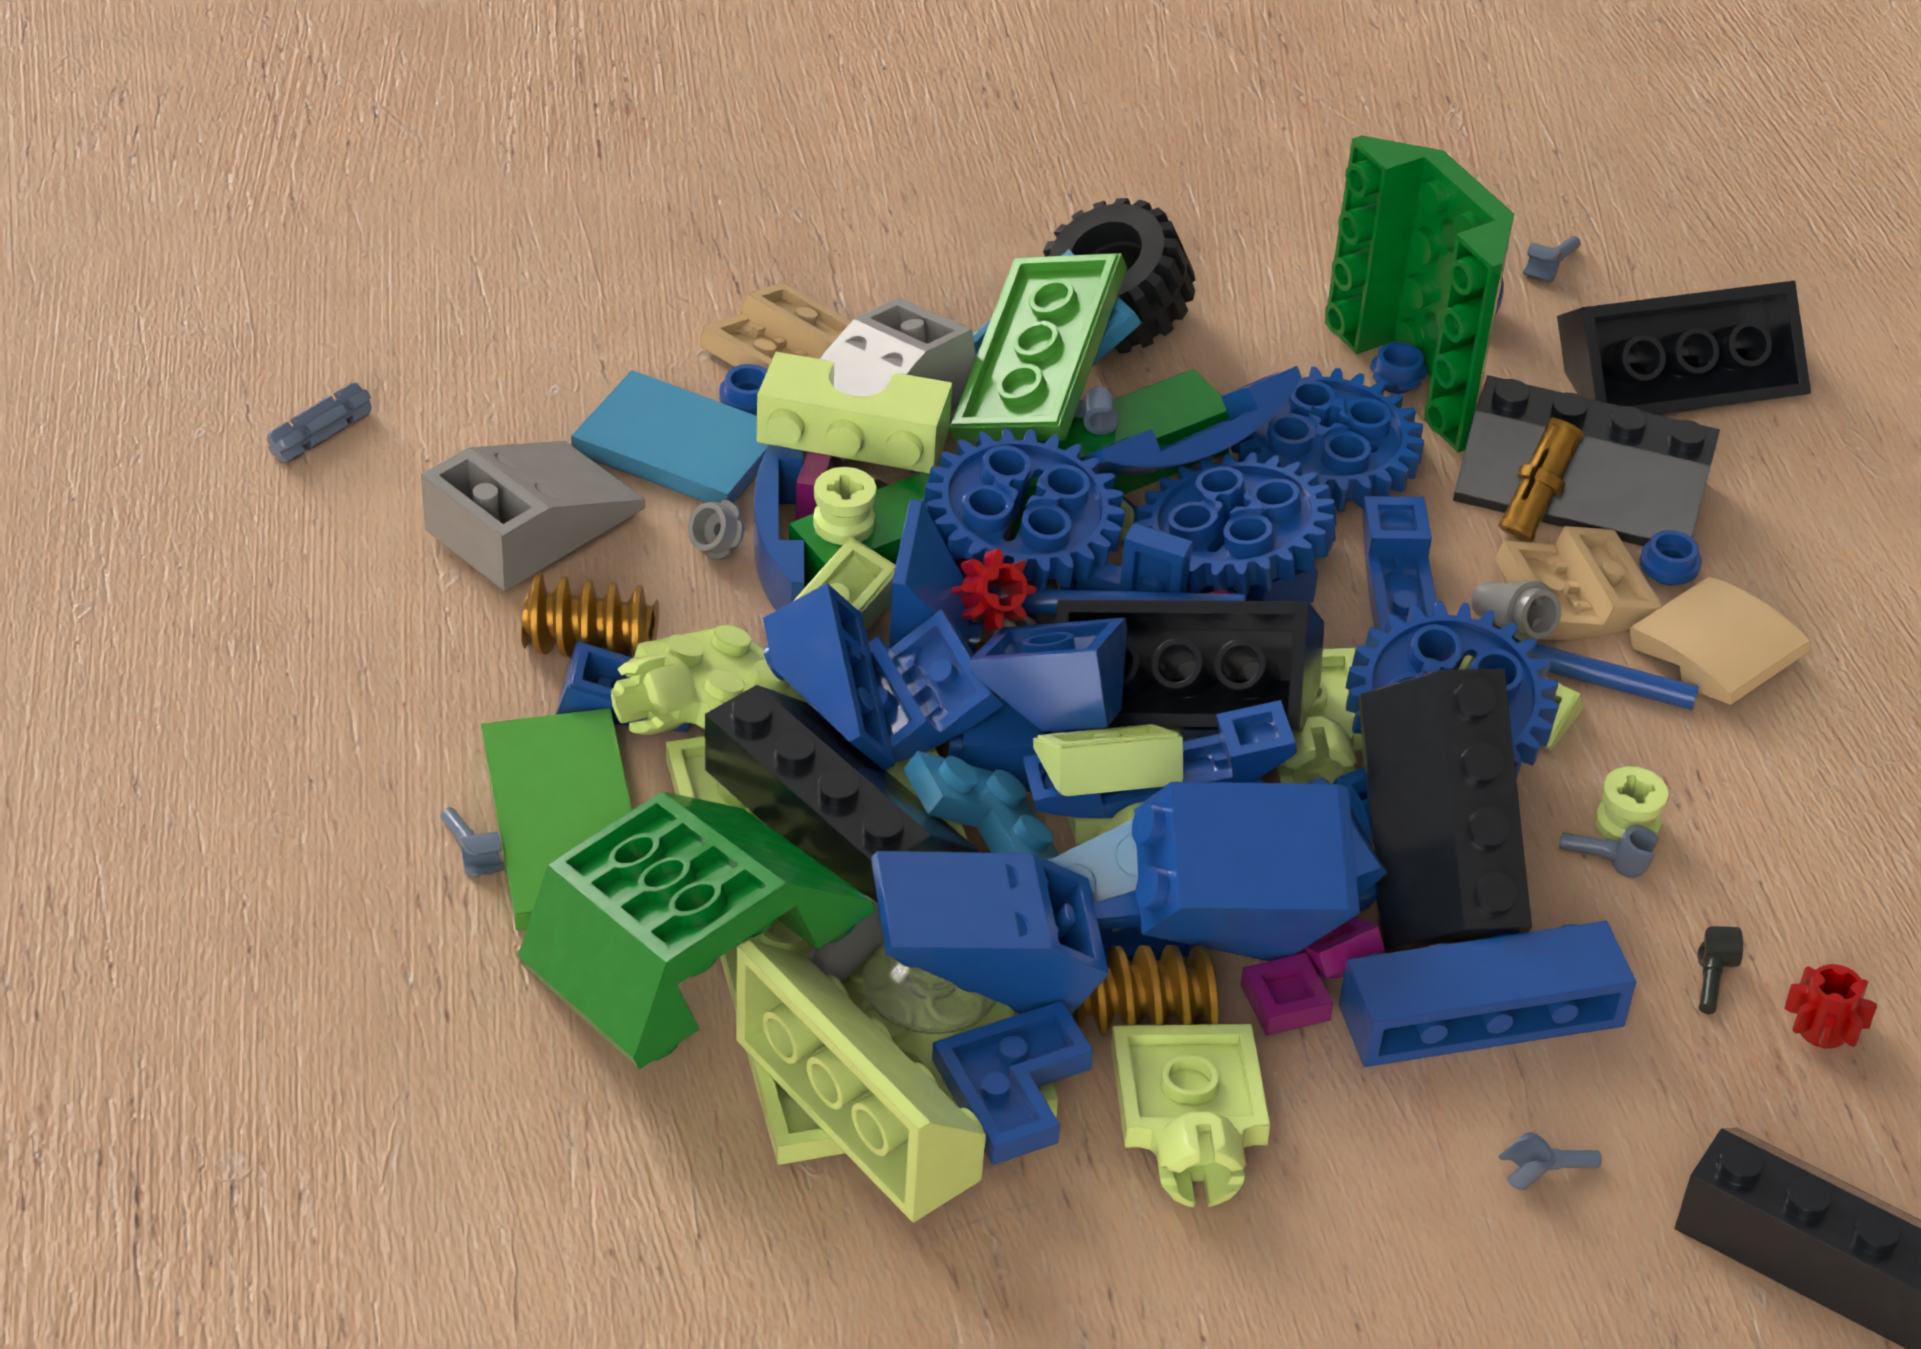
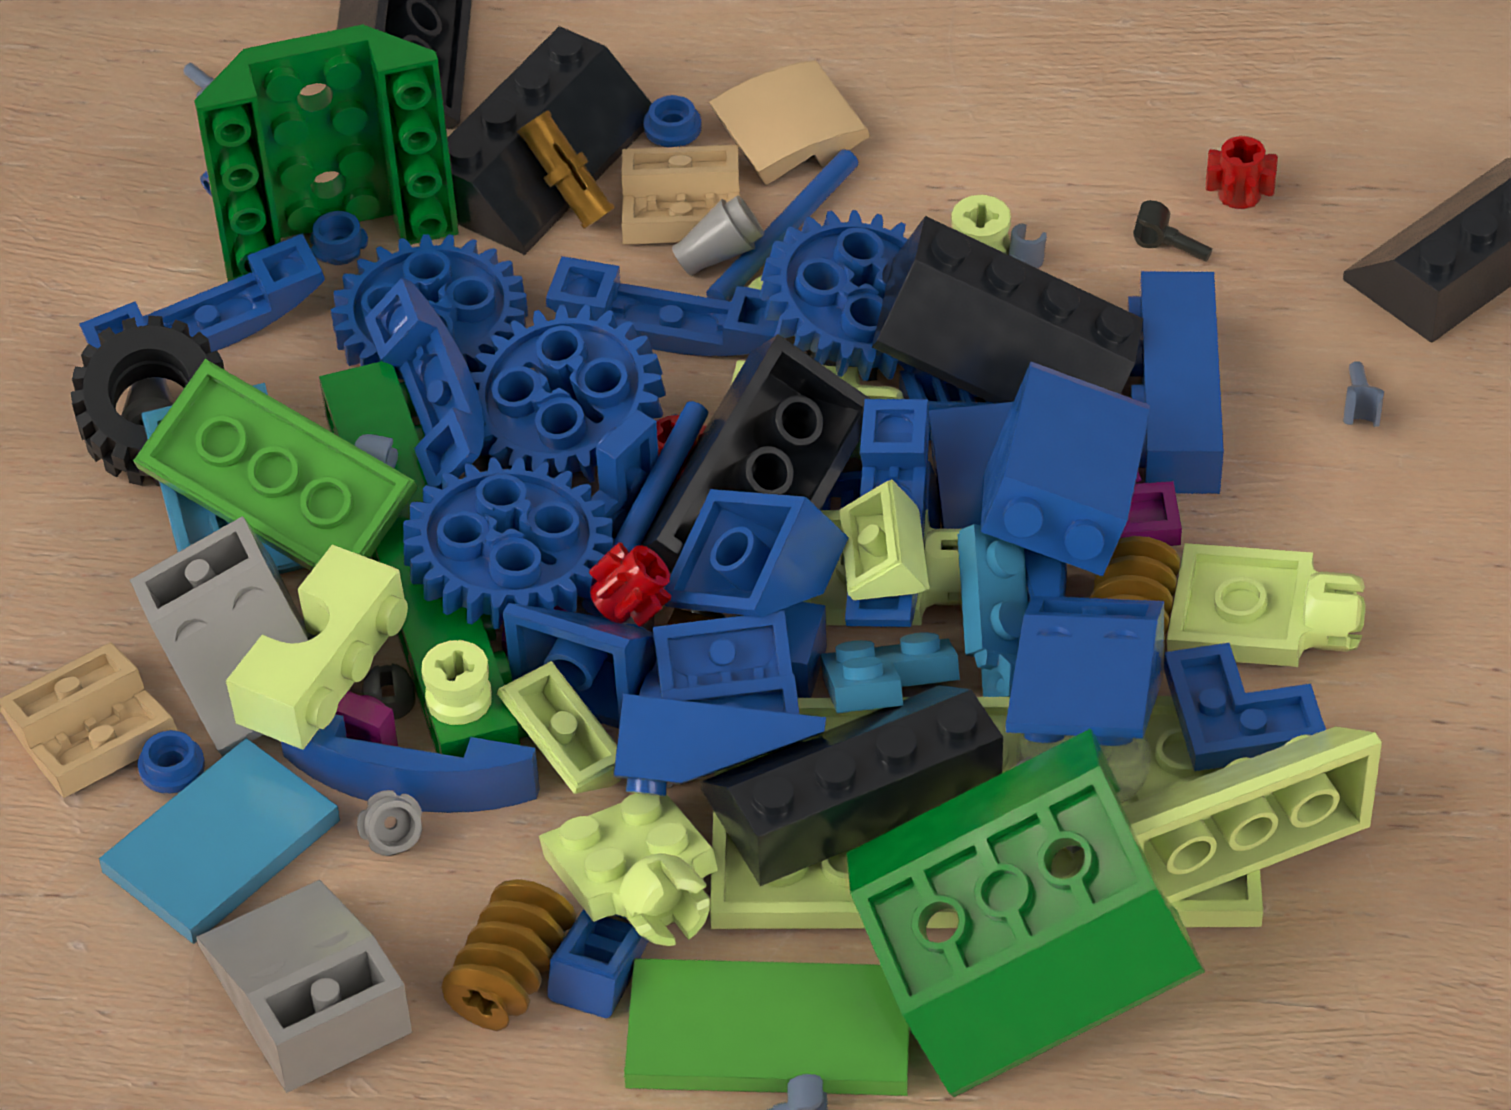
camera: 70 degrees left, 5 degrees up
(1261, 310) = (234, 310): none -> blue slope

